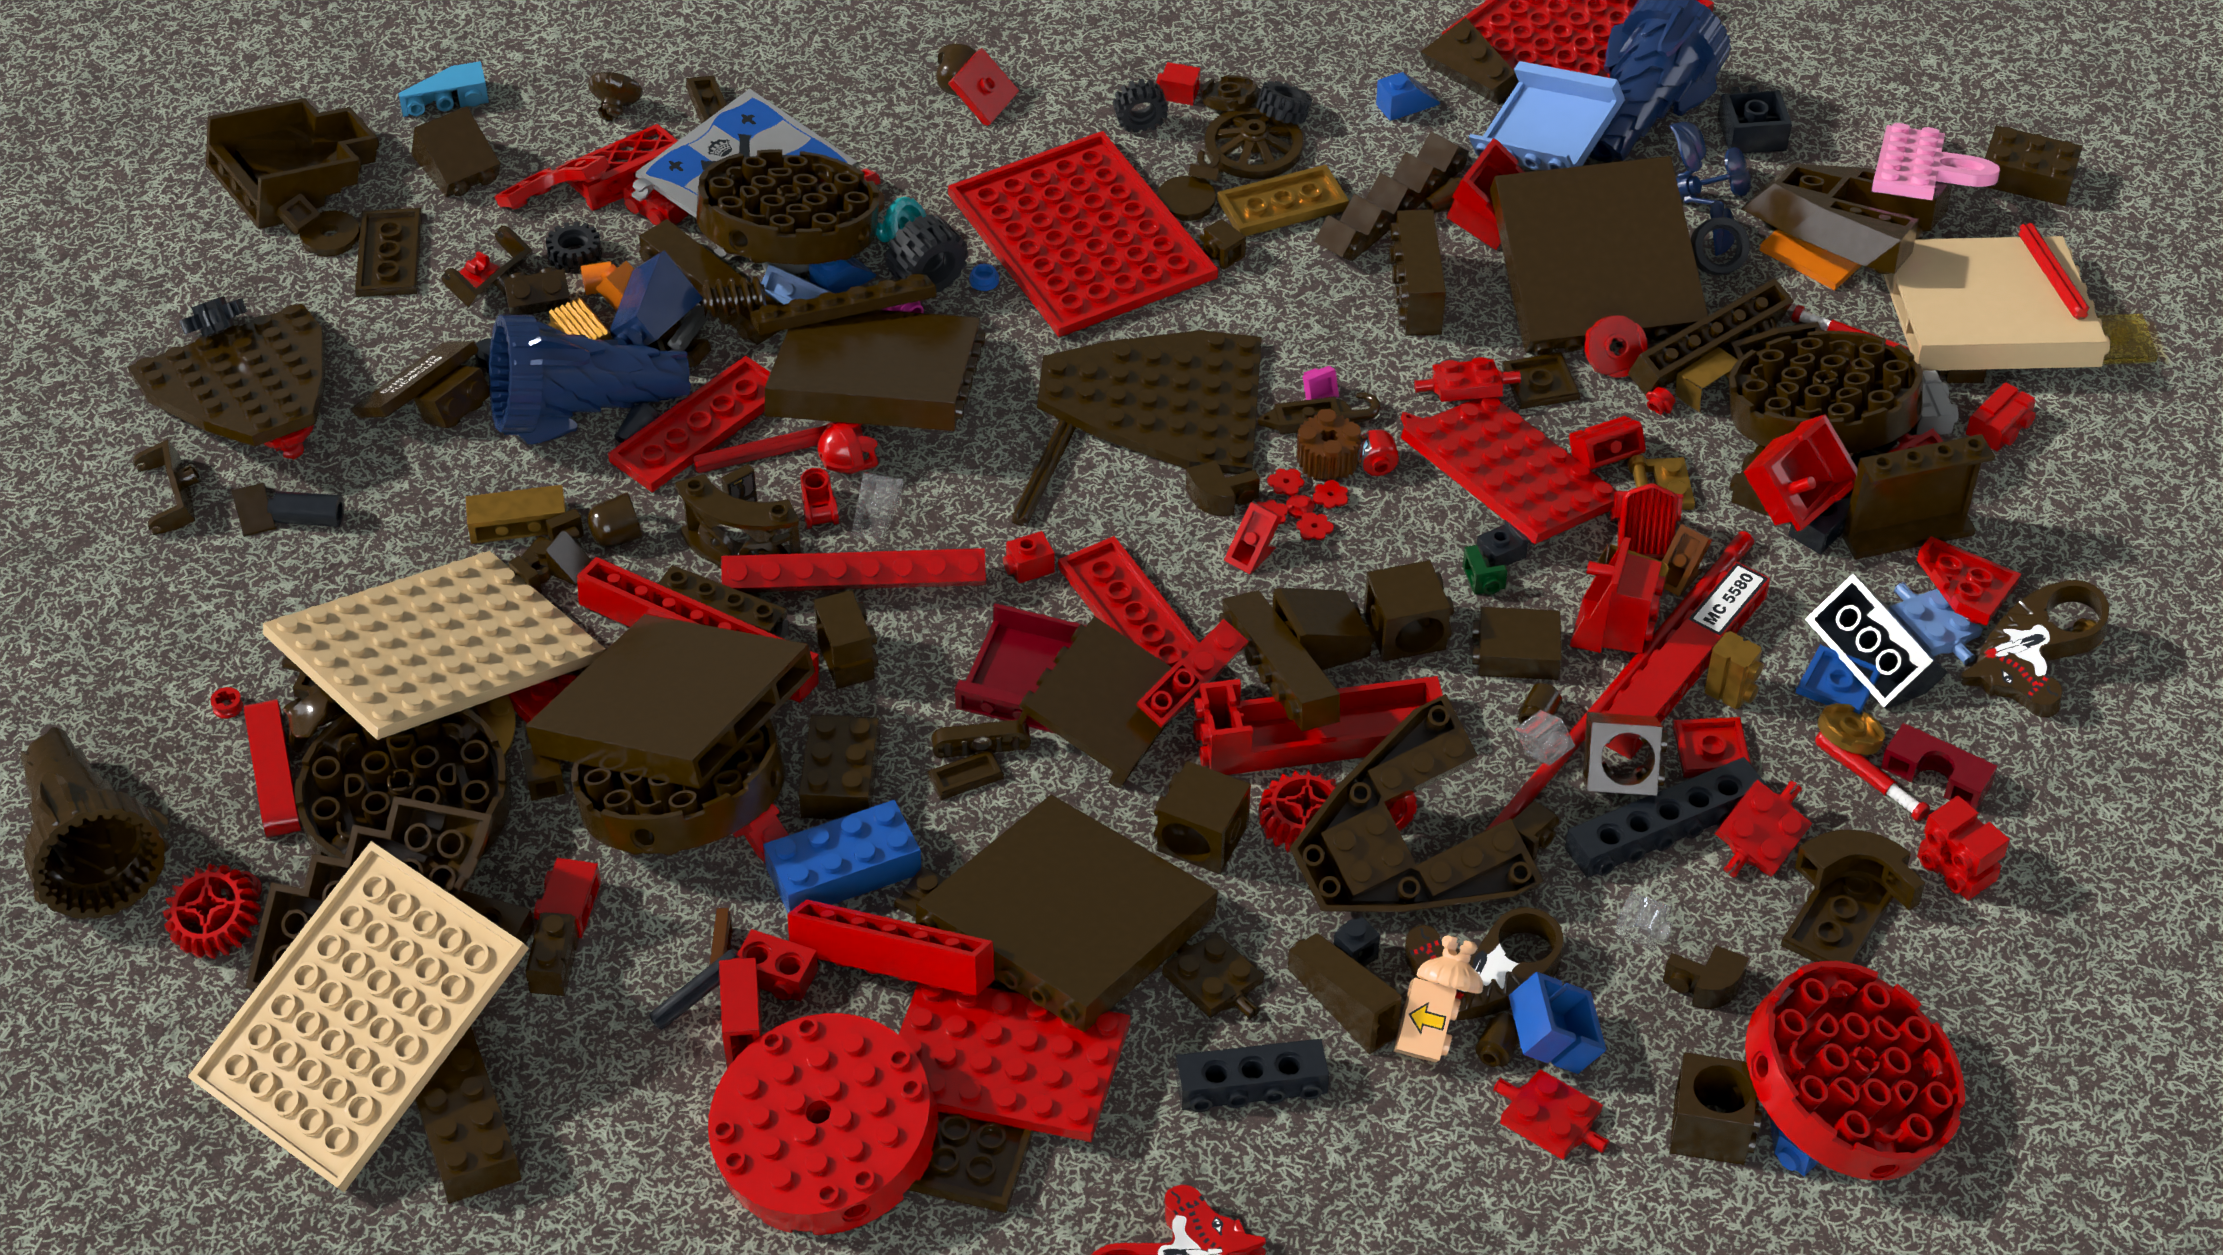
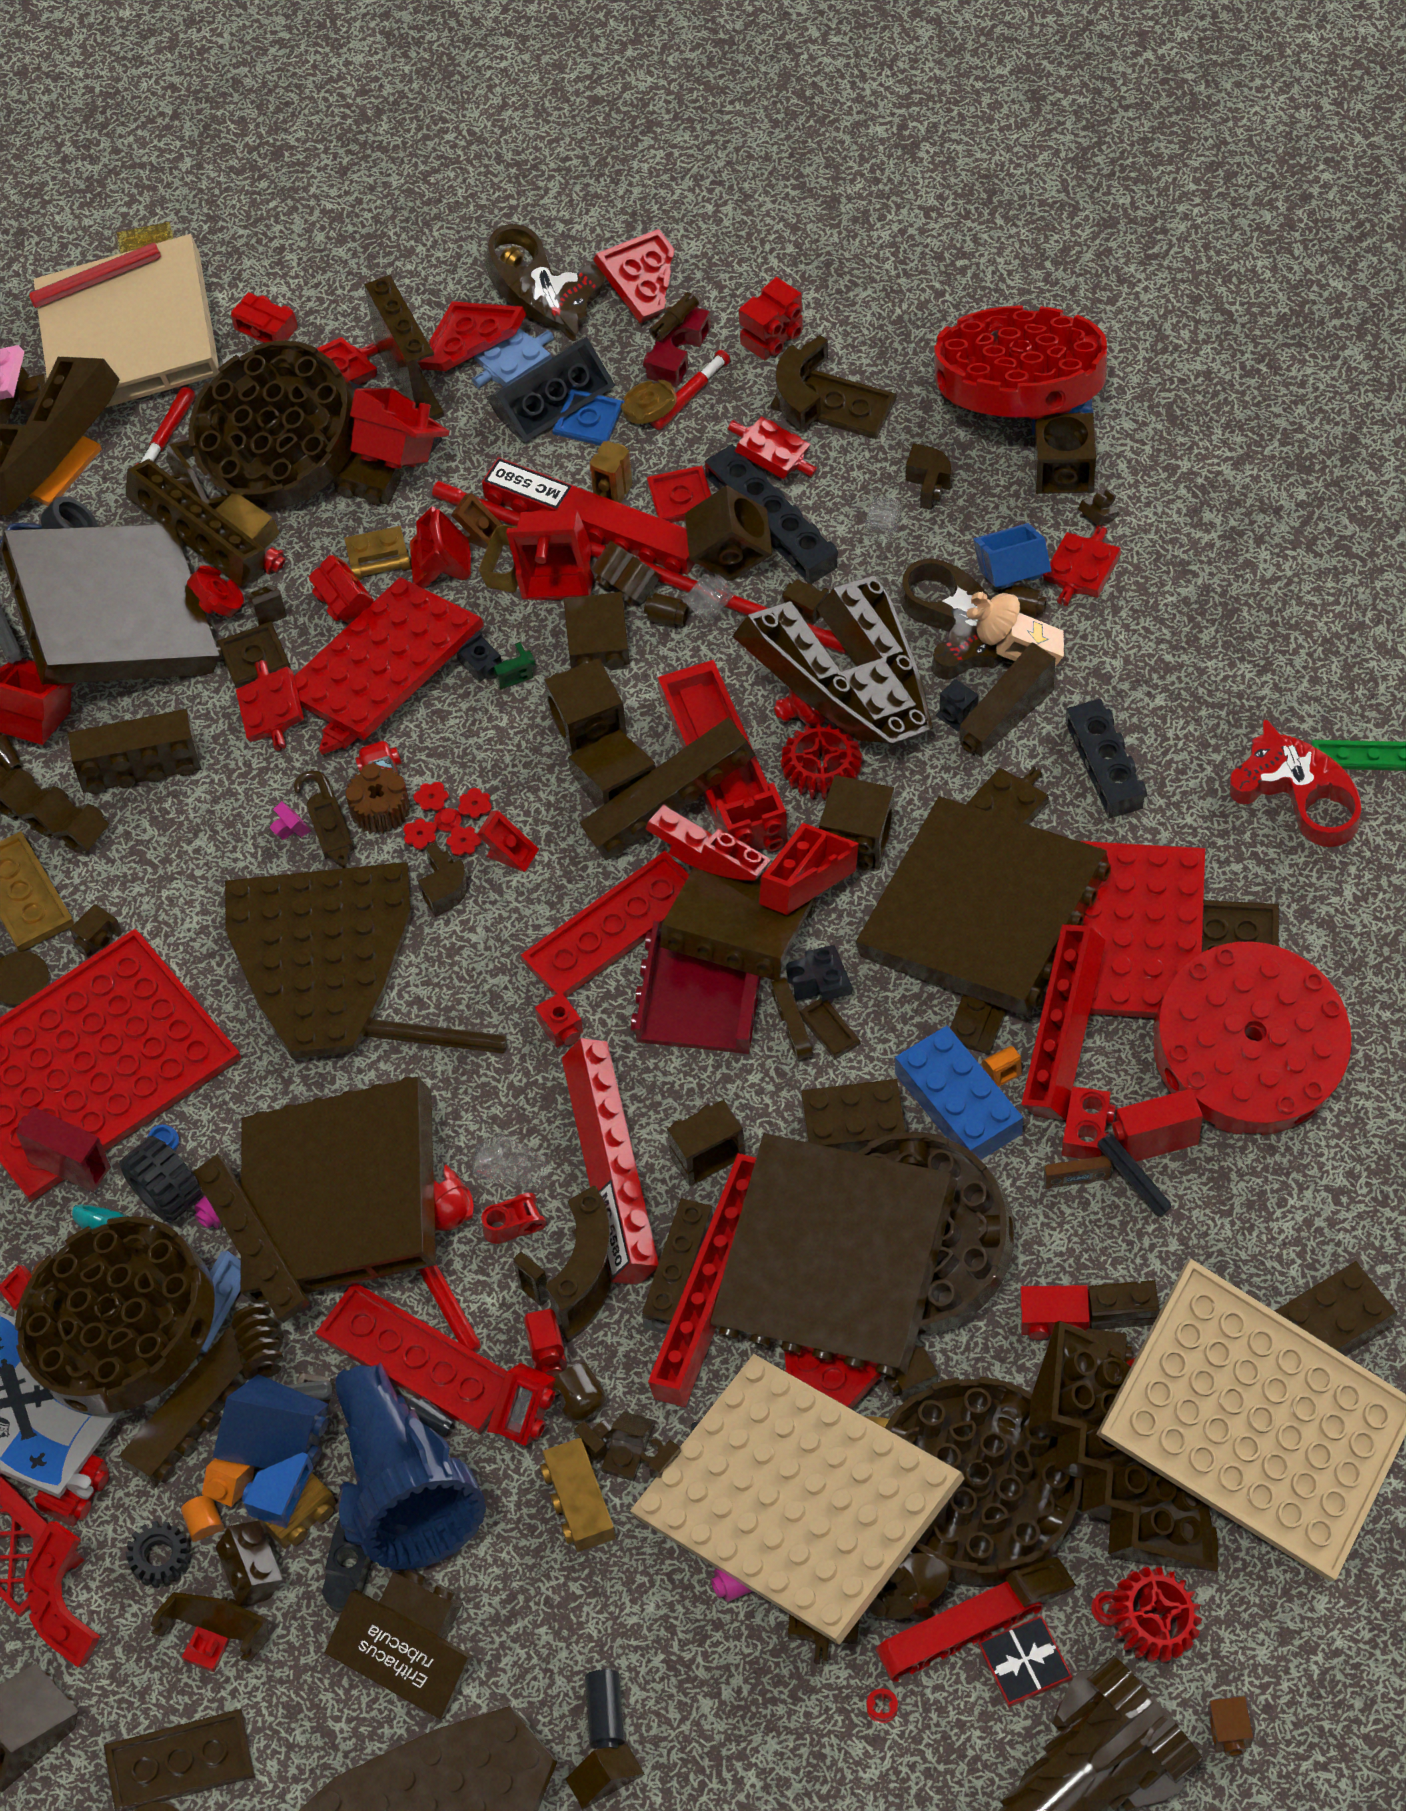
camera: 95 degrees left, 10 degrees up
(81, 955) = (1231, 1724): none -> reddish brown brick
(221, 816) = (1025, 1661): none -> black tile
(285, 829) = (1040, 1581): none -> dark brown tile
(582, 302) = (277, 1490): none -> blue slope
(613, 473) = (522, 1404): none -> red window
(664, 503) = (545, 1342): none -> red brick
(870, 900) = (1003, 1065): none -> orange brick
(971, 189) = (63, 1149): none -> dark red brick
(1026, 772) = (819, 972): none -> black plate
(1137, 744) = (806, 868): none -> red wedge
(1593, 673) = (626, 573): none -> dark brown brick
(1601, 388) = (266, 604): none -> dark brown slope
(1633, 1144) = (1100, 507): none -> dark brown tile
(1964, 748) = (673, 316): none -> dark brown pin
(2057, 744) = (638, 272): none -> plate

